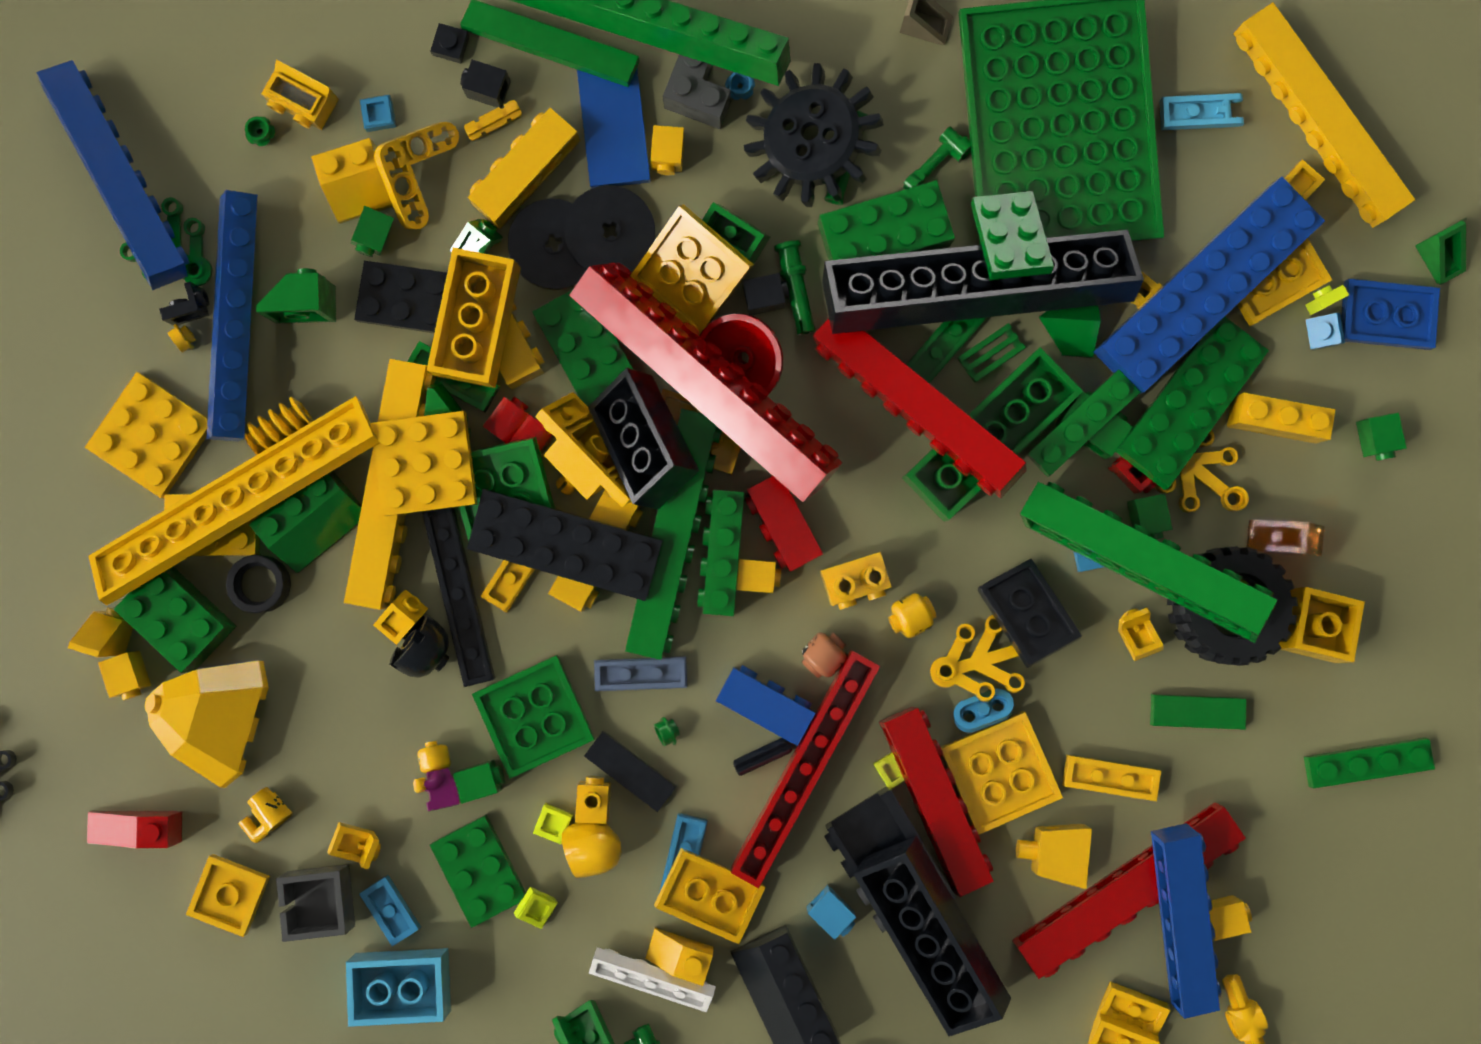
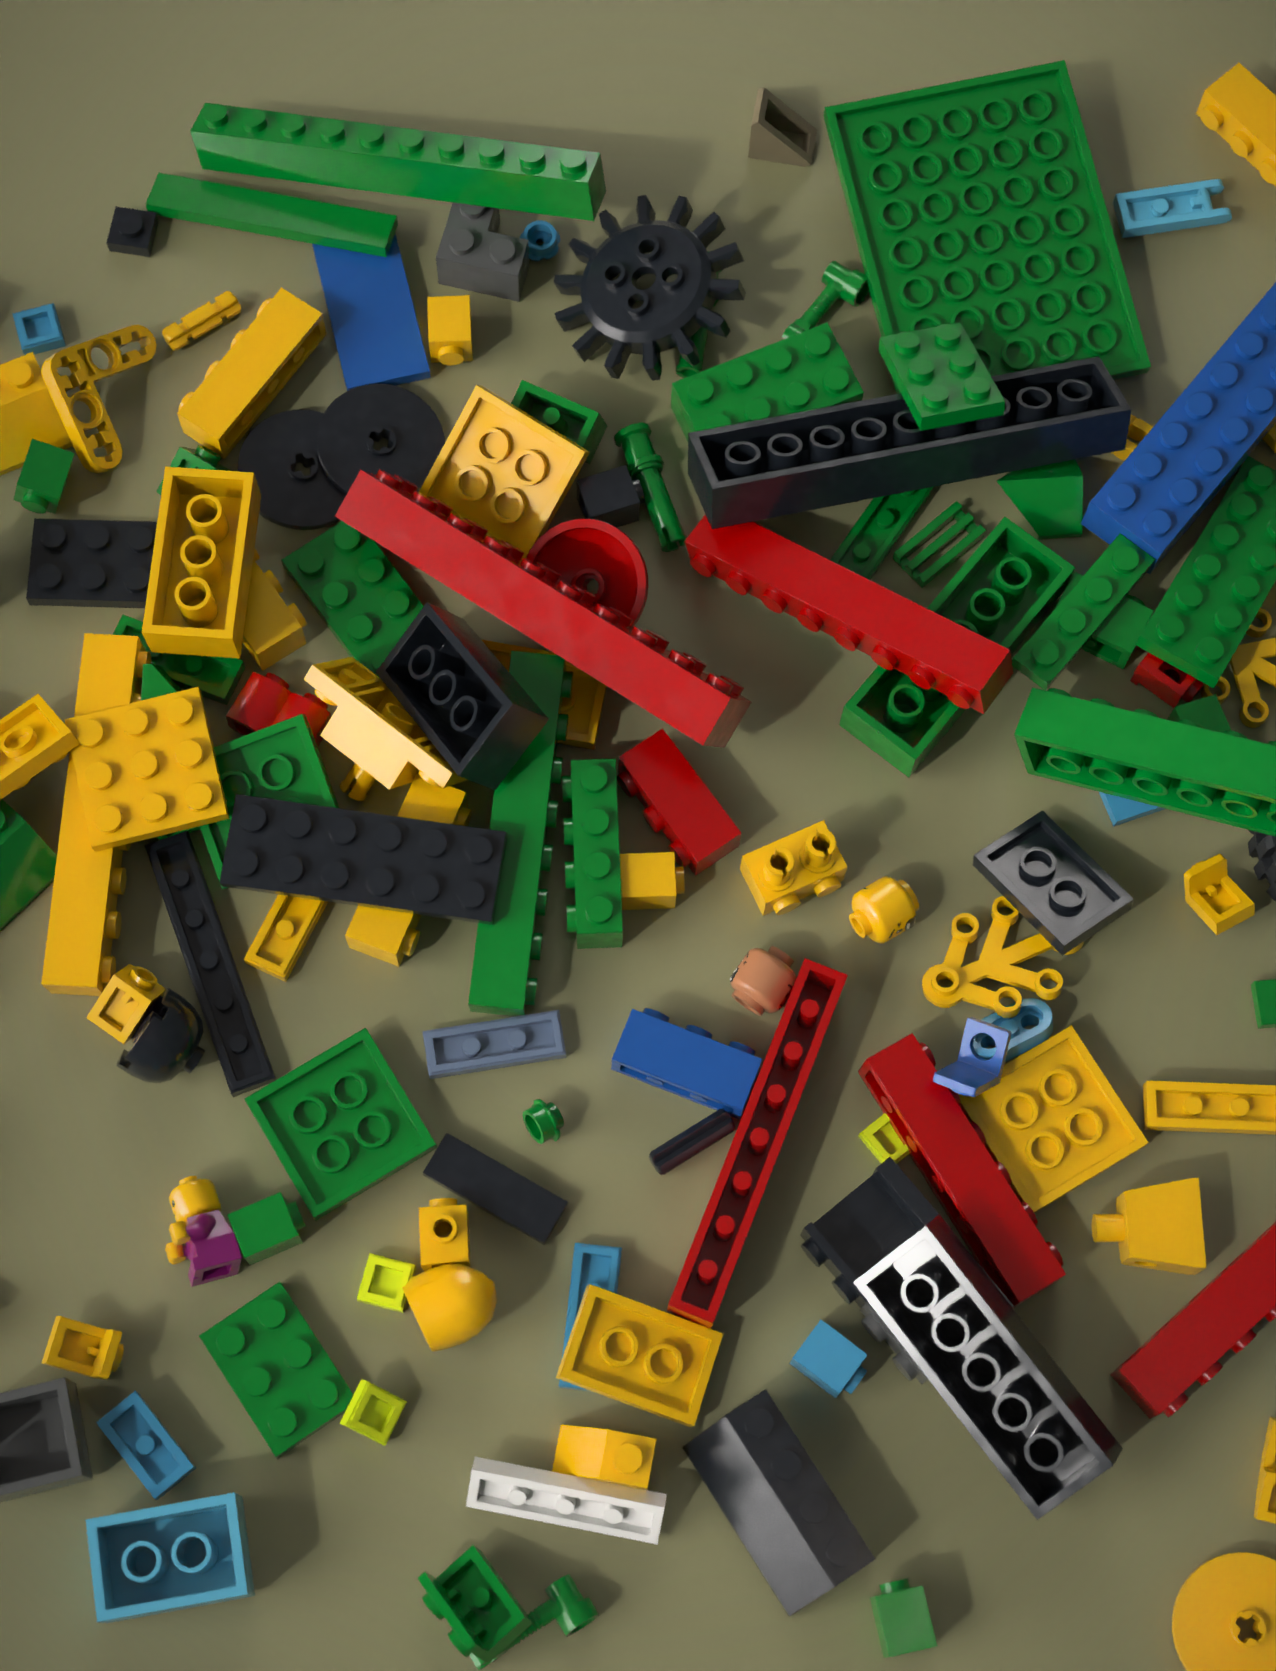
camera: 10 degrees left, 15 degrees down
(485, 83) = (187, 273): black brick -> none
(952, 739) = (972, 1073): none -> blue bracket

